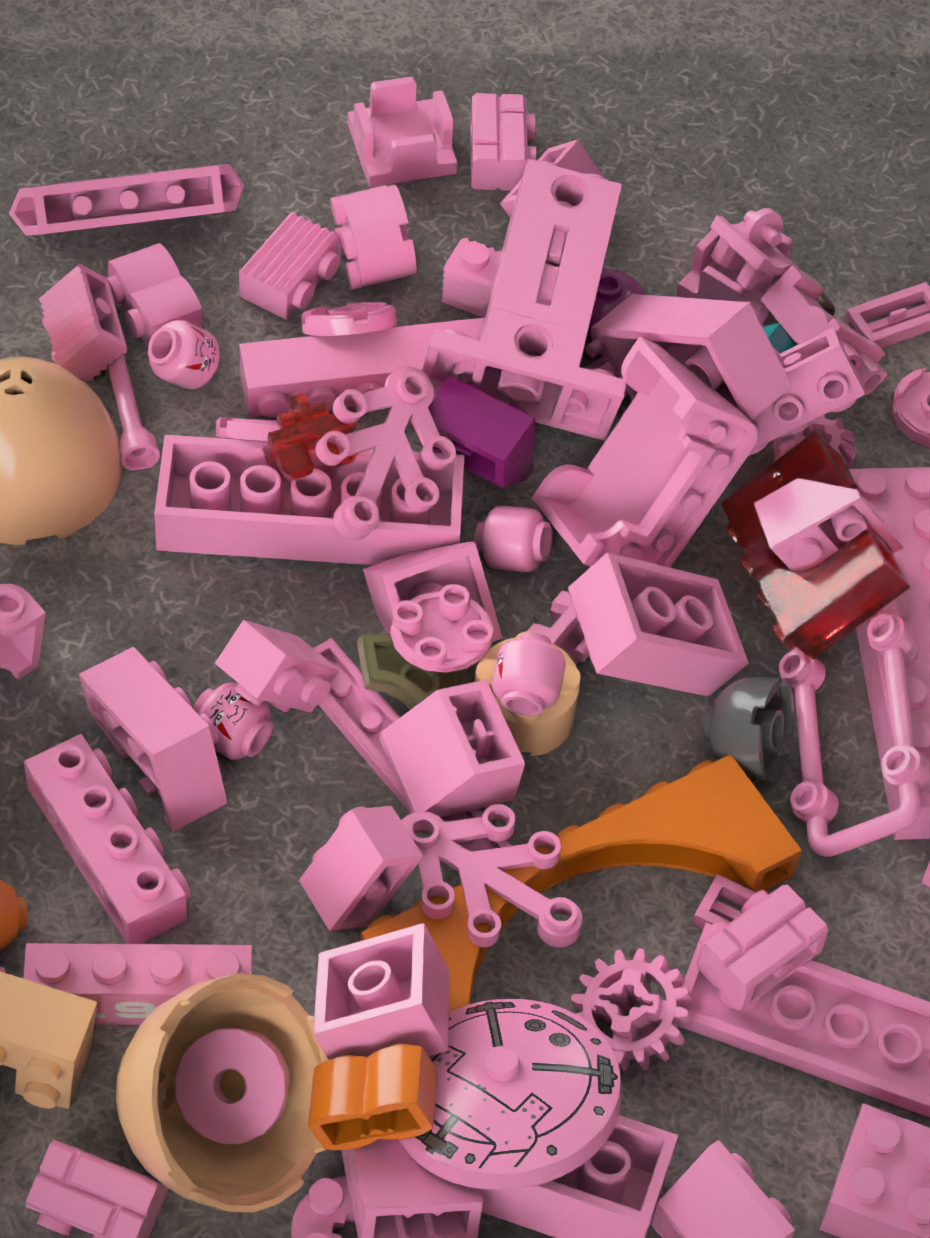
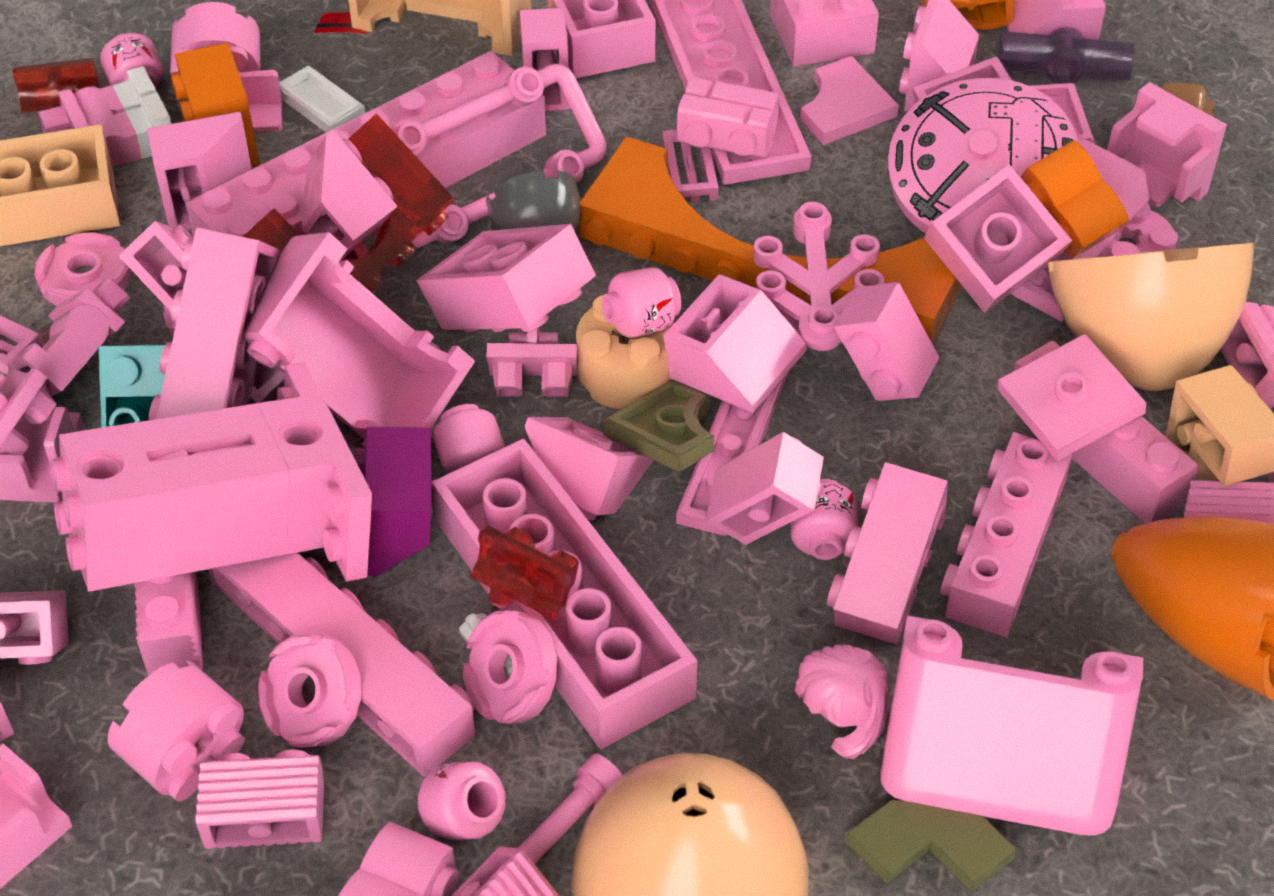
camera: 120 degrees left, 5 degrees down
(74, 610) = (847, 690): none -> bright pink hair
(165, 933) = (1071, 397): none -> bright pink plate
(388, 445) = (490, 506): bright pink plant -> none
(442, 630) = (629, 404): bright pink dish -> none
(619, 989) = (832, 172): bright pink gear -> none
(751, 1124) = (846, 102): none -> bright pink tile

